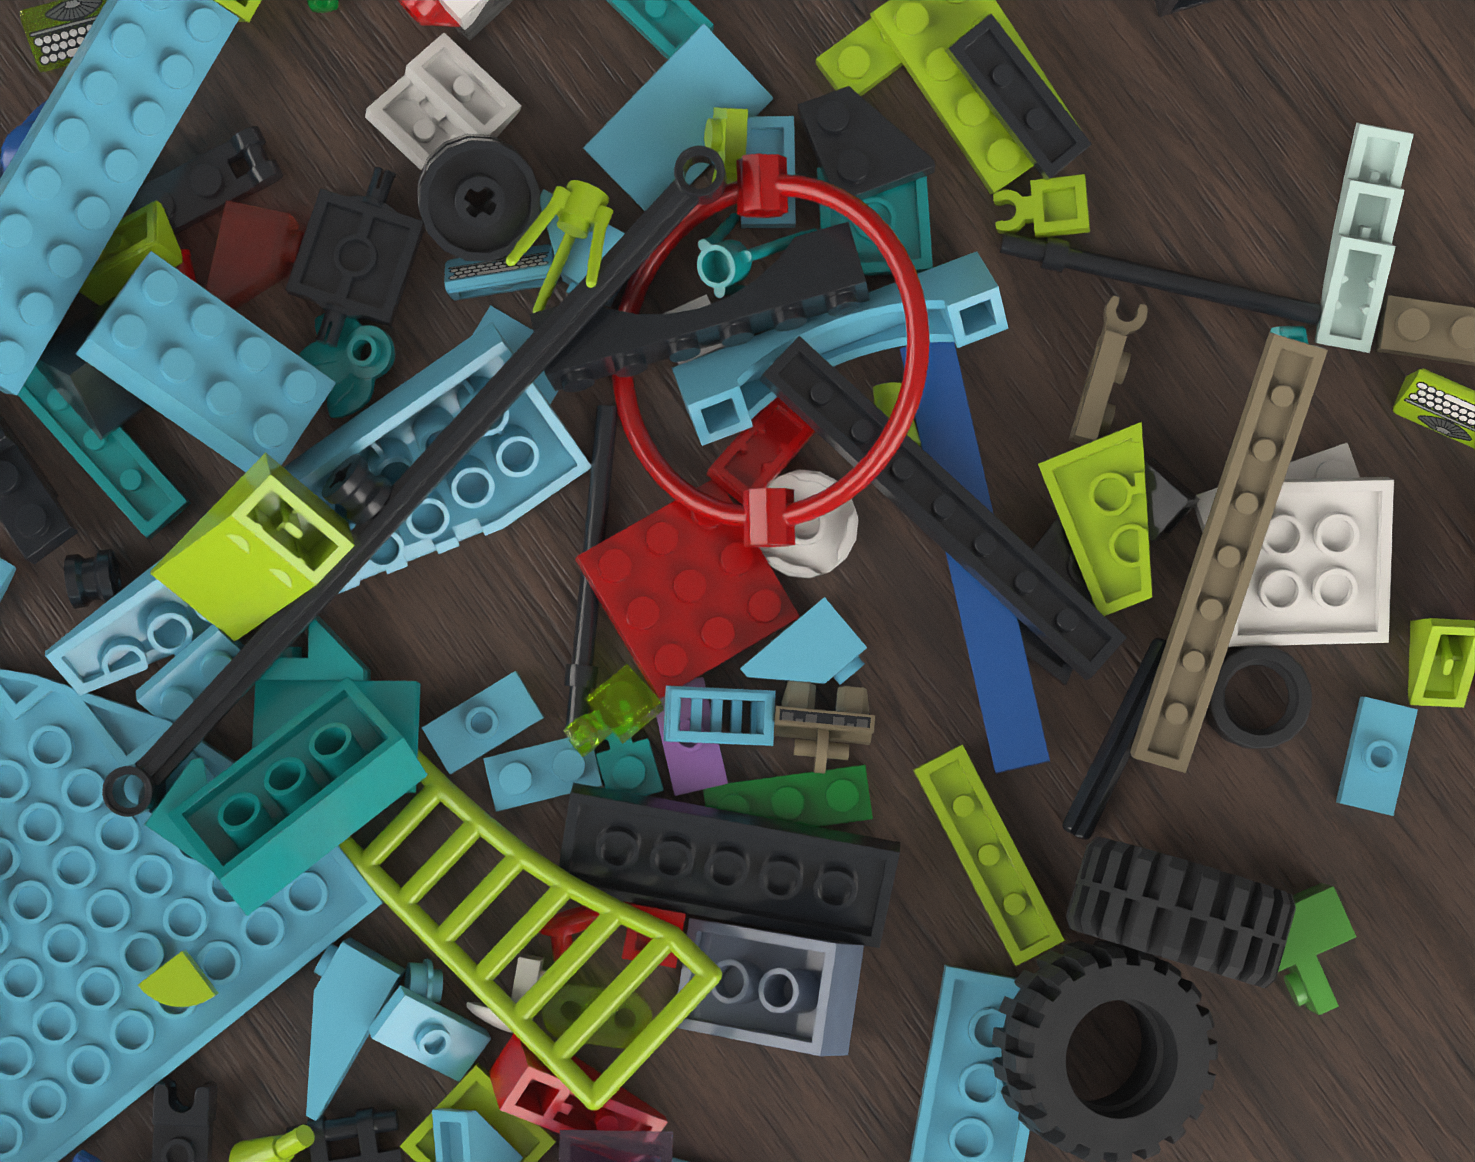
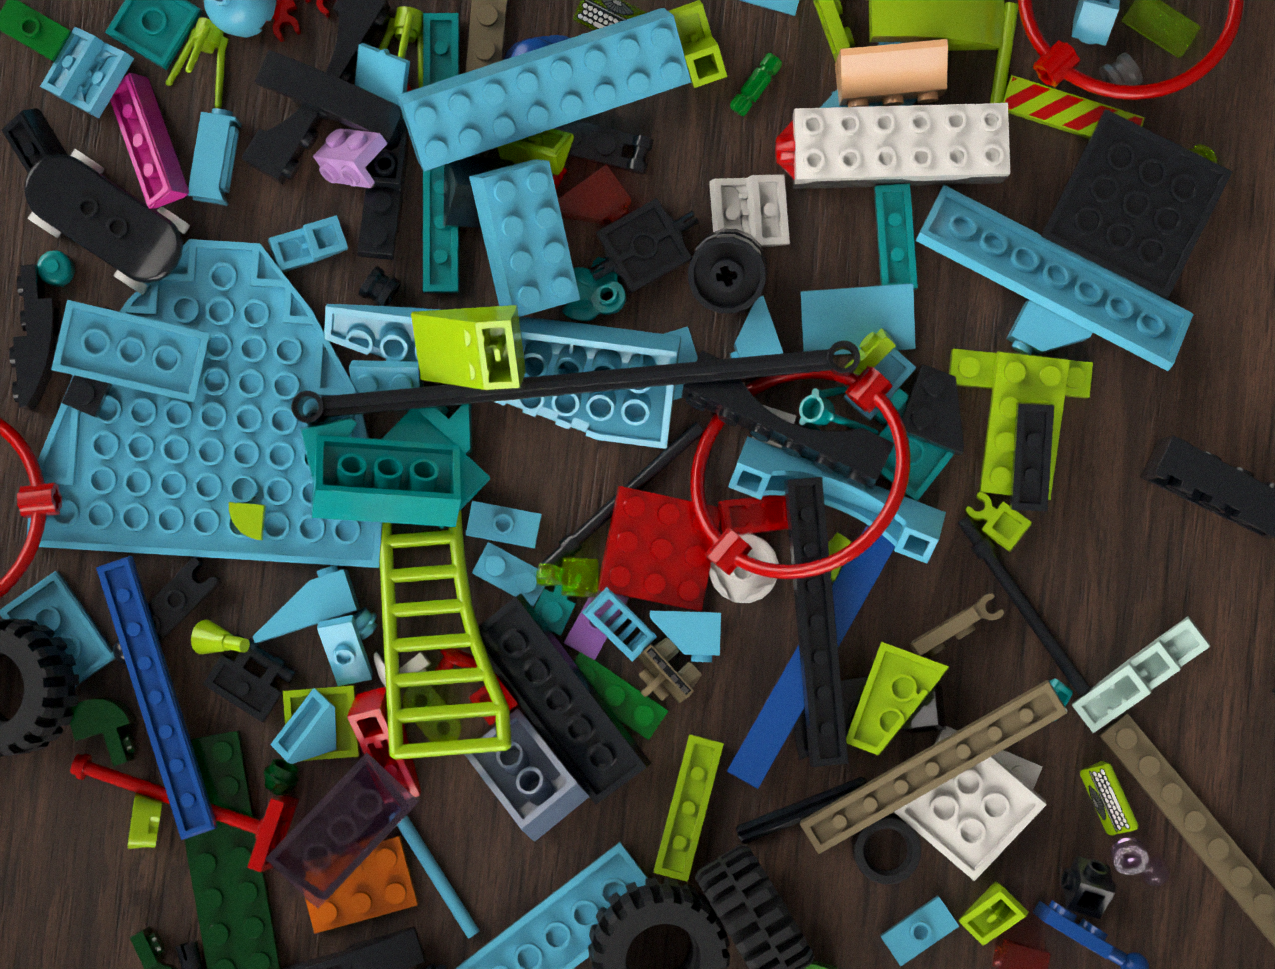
camera: 45 degrees right, 0 degrees up
(357, 489) = (544, 361): black wheel -> none
(481, 278) = (722, 325): medium azure slope -> none
(580, 211) = (770, 323): lime plant -> none
(805, 166) = (897, 399): none -> teal tile

